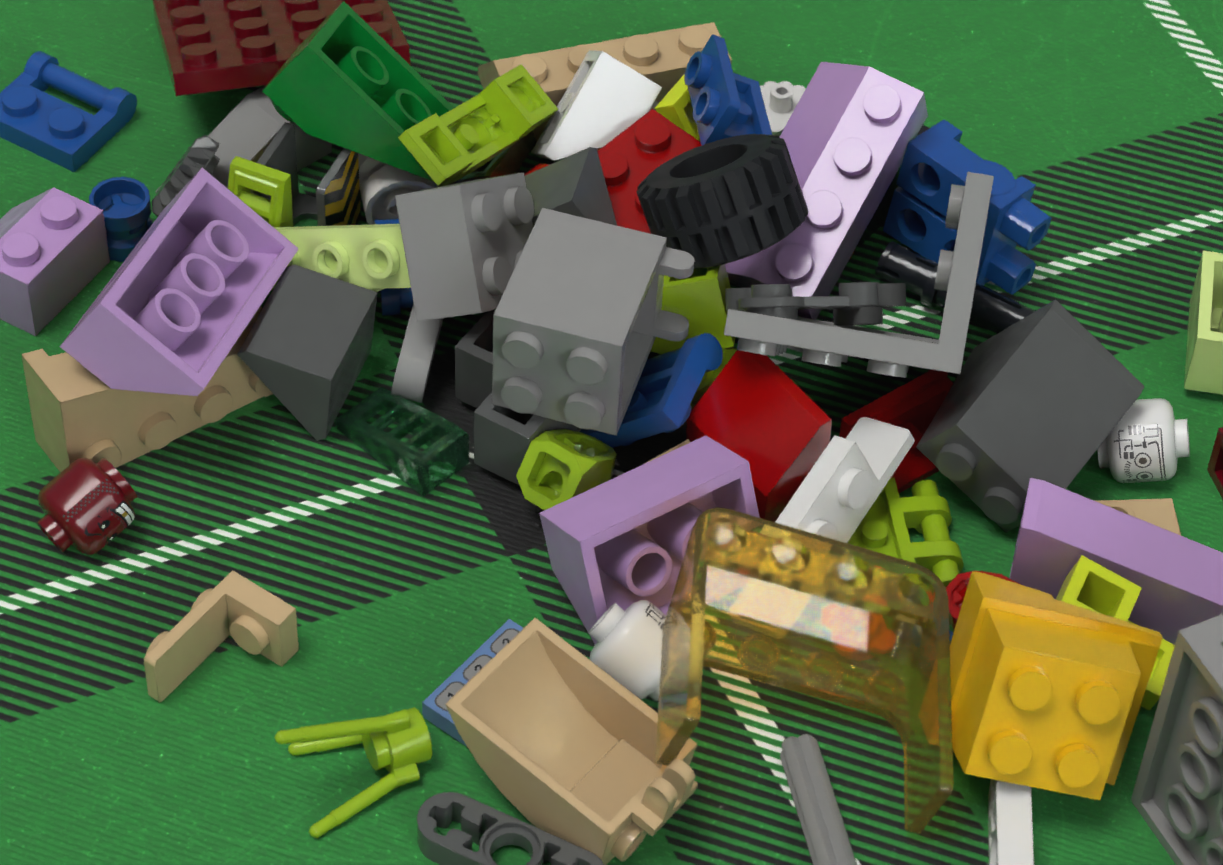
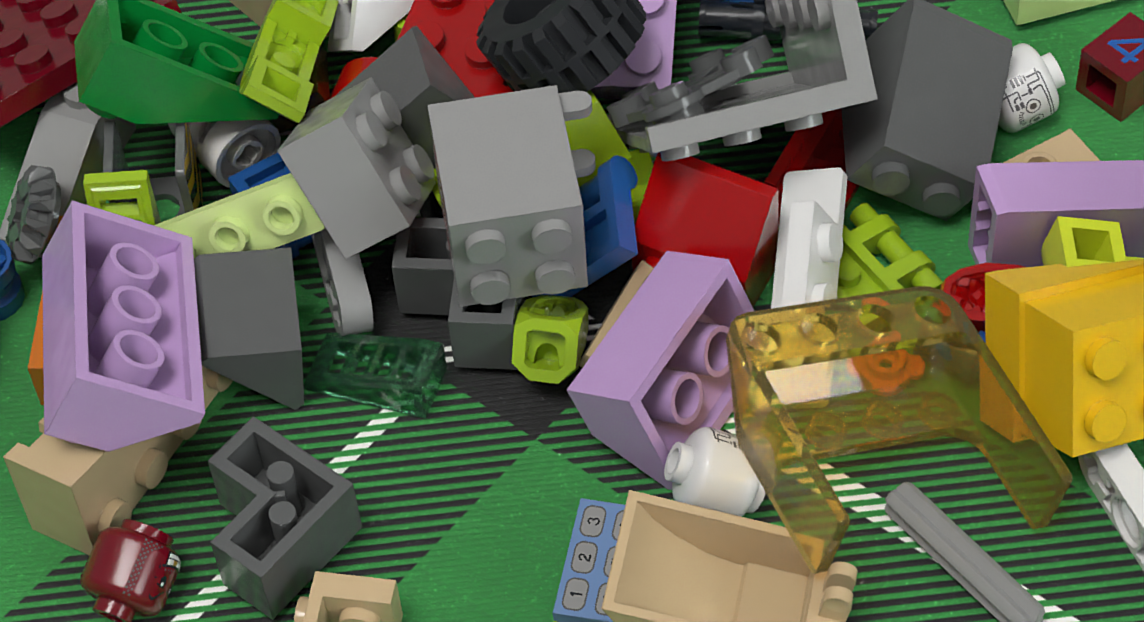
camera: 20 degrees left, 5 degrees up
(240, 517) = (287, 518): none -> dark grey brick

